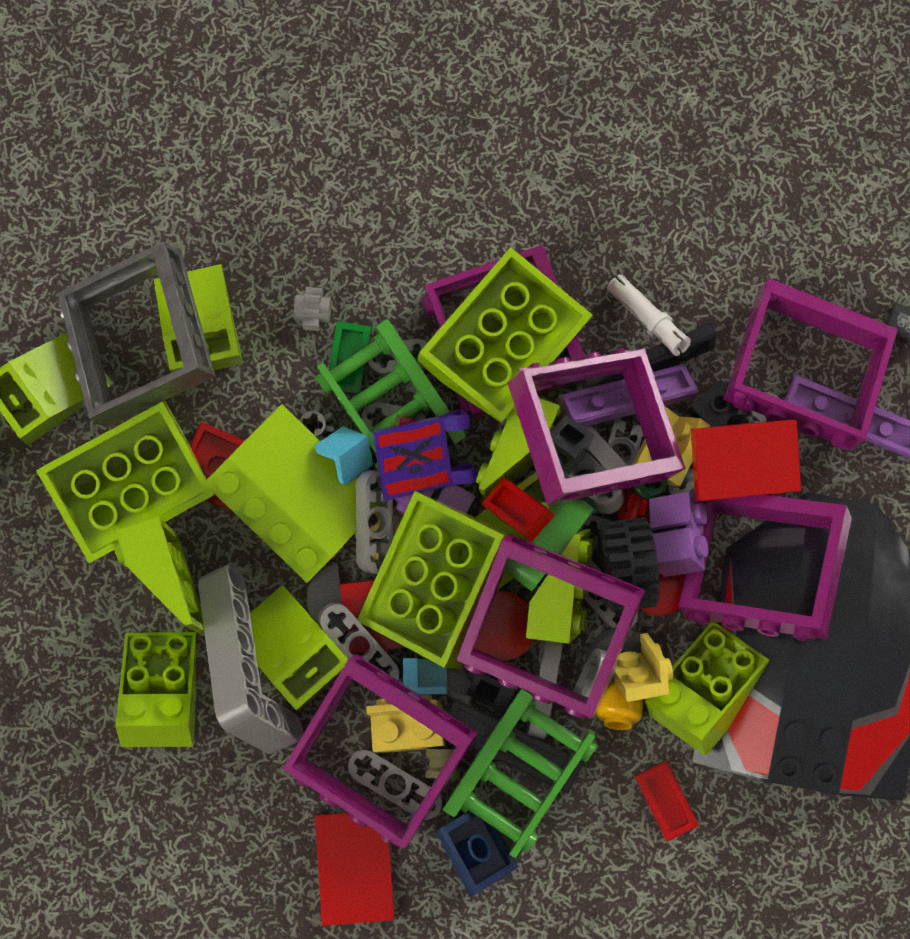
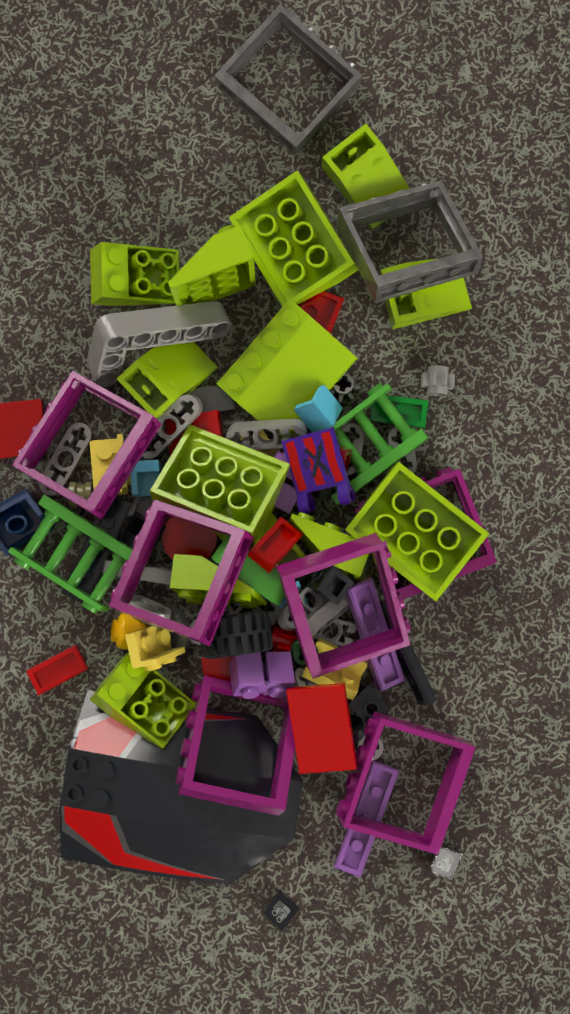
camera: 90 degrees right, 5 degrees up
(657, 322) = (435, 656): white pin -> none

